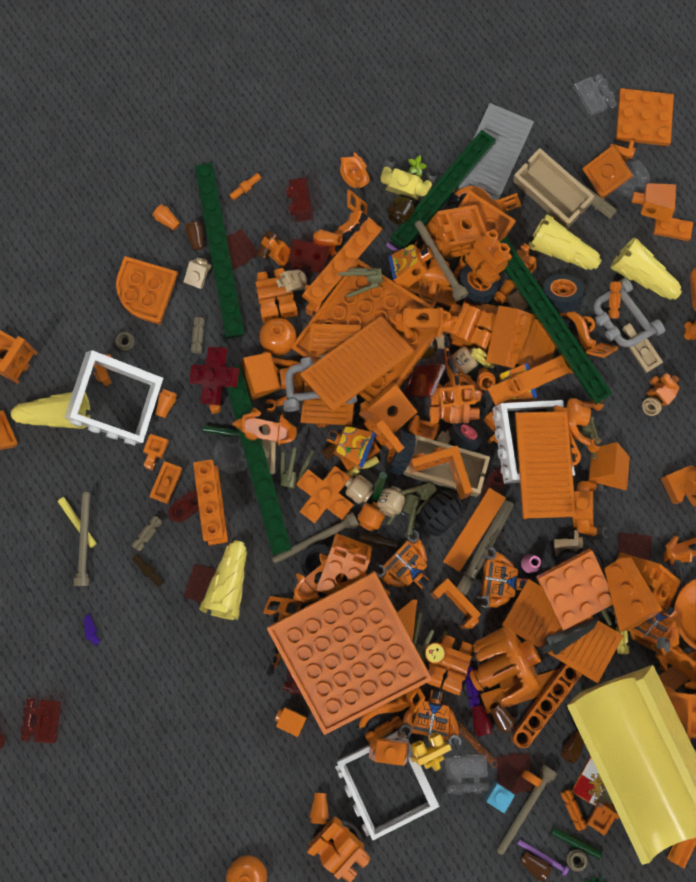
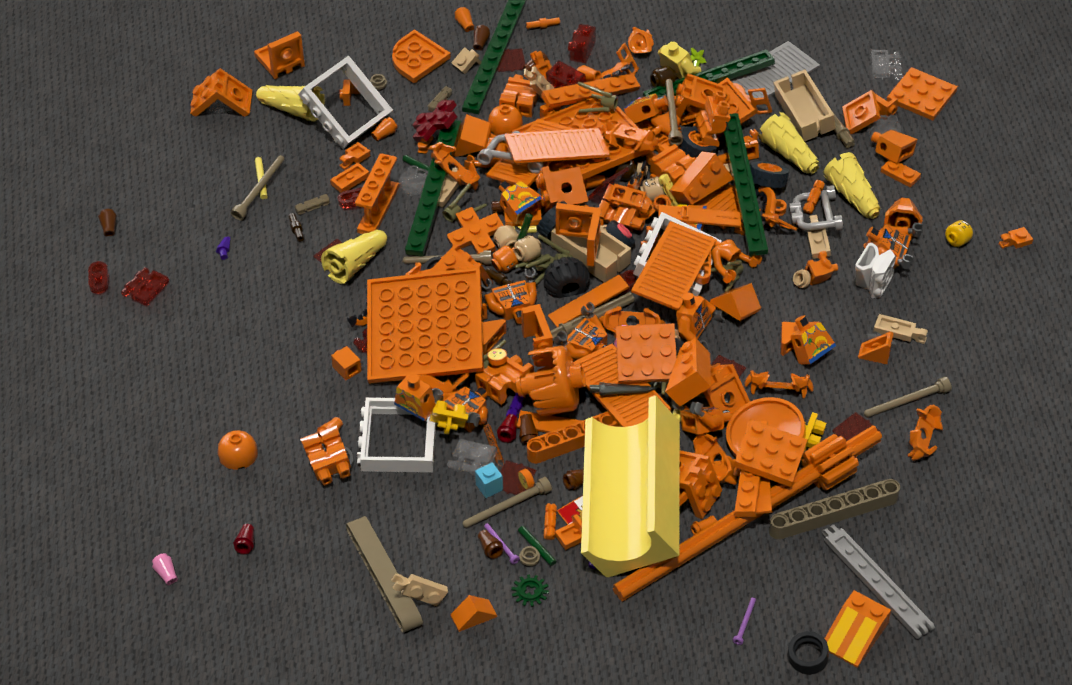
camera: 30 degrees right, 30 degrees down
(541, 530) = (618, 318): none -> orange piece

